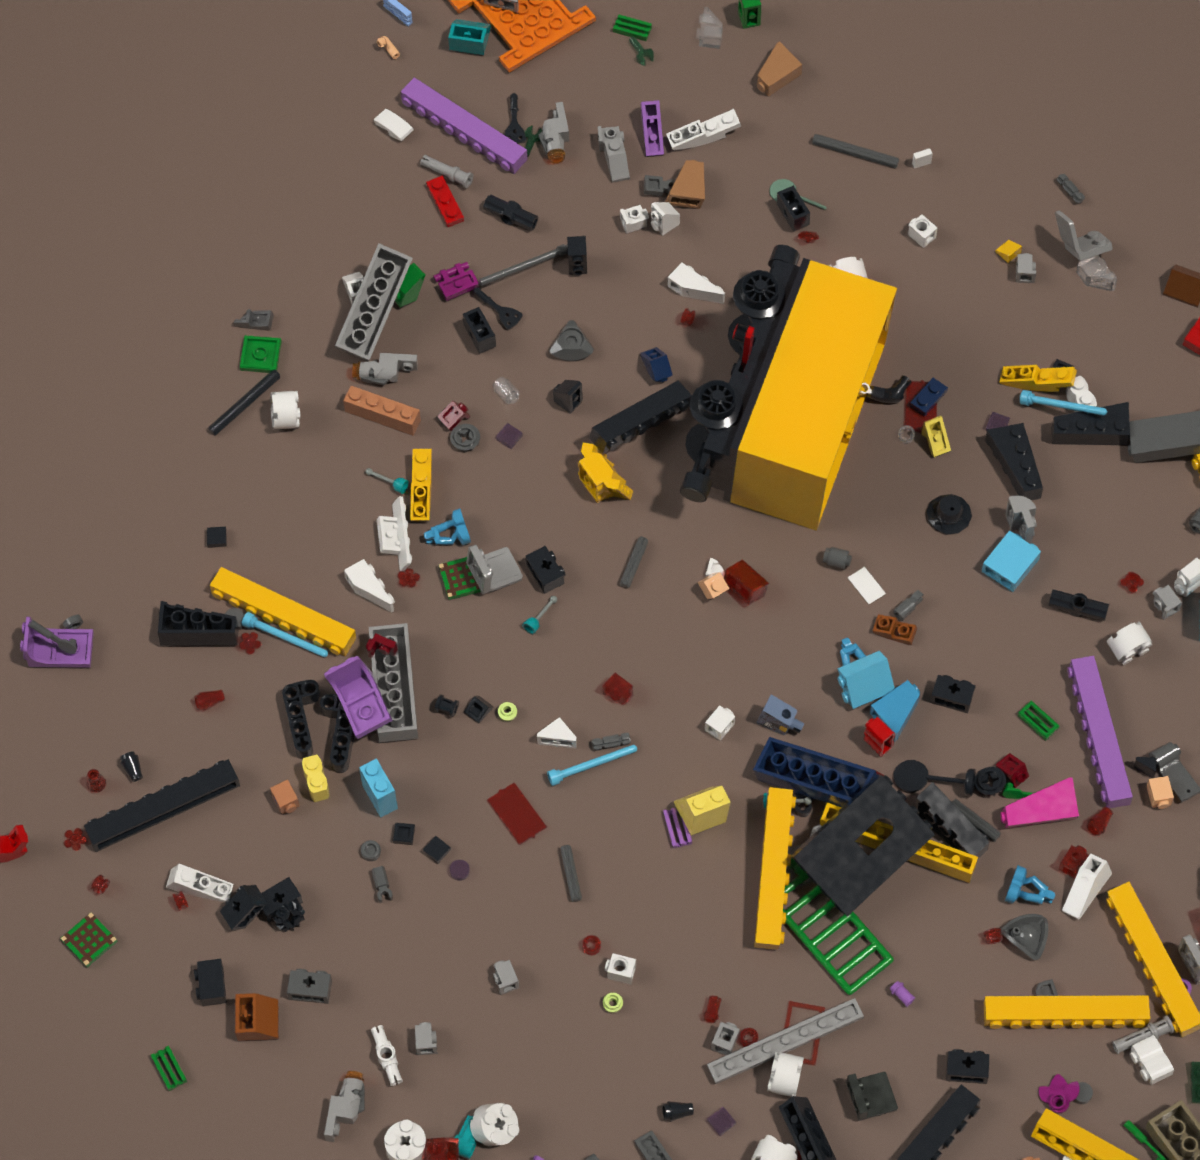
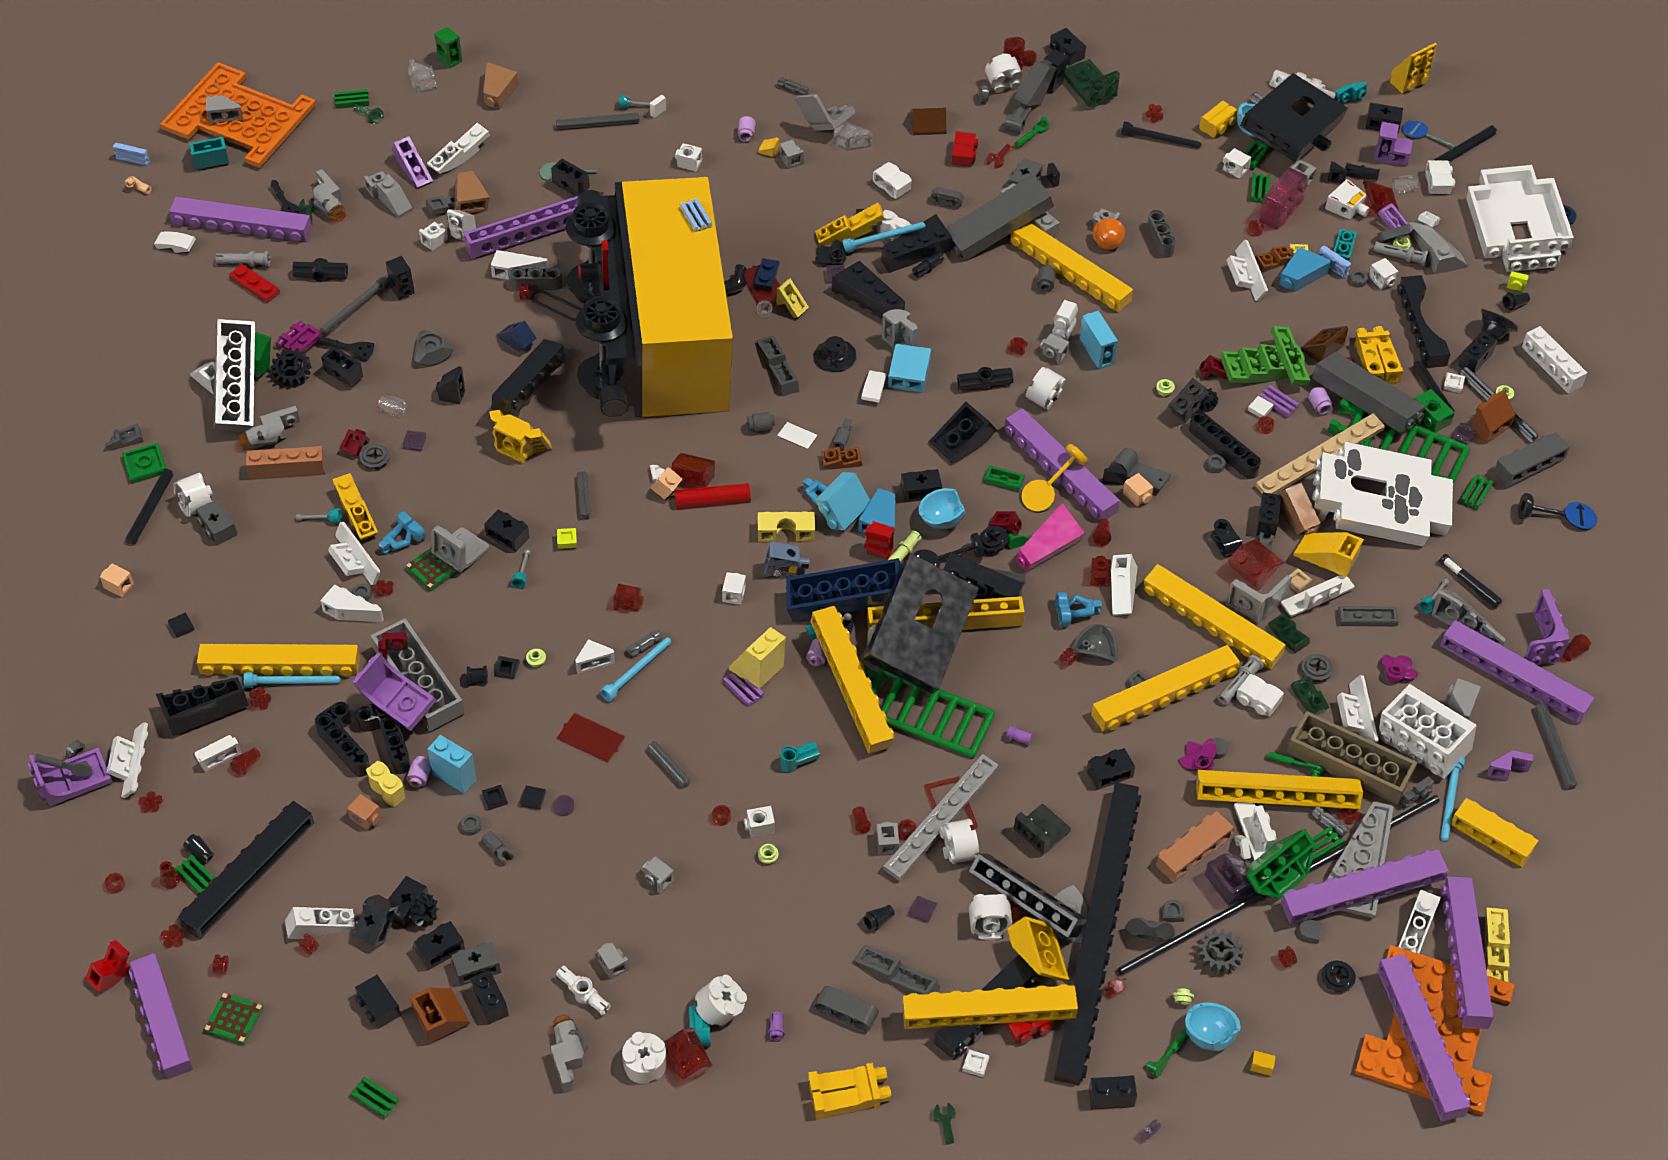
camera: 30 degrees left, 10 degrees down
(30, 910) = (161, 1016): none -> medium lavender brick
(45, 762) = (108, 882): none -> clear red bush
(111, 650) = (126, 759): none -> white bracket
(113, 701) = (151, 802): none -> clear red plant
(115, 776) = (187, 865): none -> green tile
(181, 467) = (116, 580): none -> light nougat brick
(190, 679) = (218, 752): none -> white panel
(279, 961) = (438, 945): none -> black brick
(292, 436) = (216, 522): none -> dark grey brick
(304, 1023) = (489, 997): none -> black brick
(349, 780) = (419, 772): none -> lavender brick
(387, 574) = (362, 590): none -> dark grey tile
(442, 305) = (291, 365): none -> black gear
(595, 601) = (566, 538): none -> neon yellow plate
(692, 919) = (798, 756): none -> teal piece
(714, 306) = (538, 278): none -> dark grey beam
(724, 246) = (519, 228): none -> medium lavender brick
(733, 361) = (541, 291): none -> black piece
(751, 616) = (712, 496): none -> red brick
(757, 824) = (816, 654): none -> lavender brick
(789, 671) = (798, 522): none -> light yellow arch
(862, 314) = (684, 207): none -> light blue tile
(887, 501) = (778, 366): none -> dark grey slope
(893, 139) = (625, 102): none -> teal hinge
(901, 752) = (905, 547): none -> yellowish green pin
(956, 729) = (942, 509): none -> medium azure cylinder
(966, 565) = (874, 386): none -> white slope
(996, 220) = (746, 128): none -> lavender brick
(1003, 398) = (833, 254): none -> black plate
(1023, 655) = (962, 433): none -> black slope
(1061, 752) = (1039, 494): none -> yellow piece
(1093, 452) = (927, 264): none -> black pin
(1110, 341) = (892, 180): none -> white brick
(1154, 384) = (947, 197): none -> dark grey beam

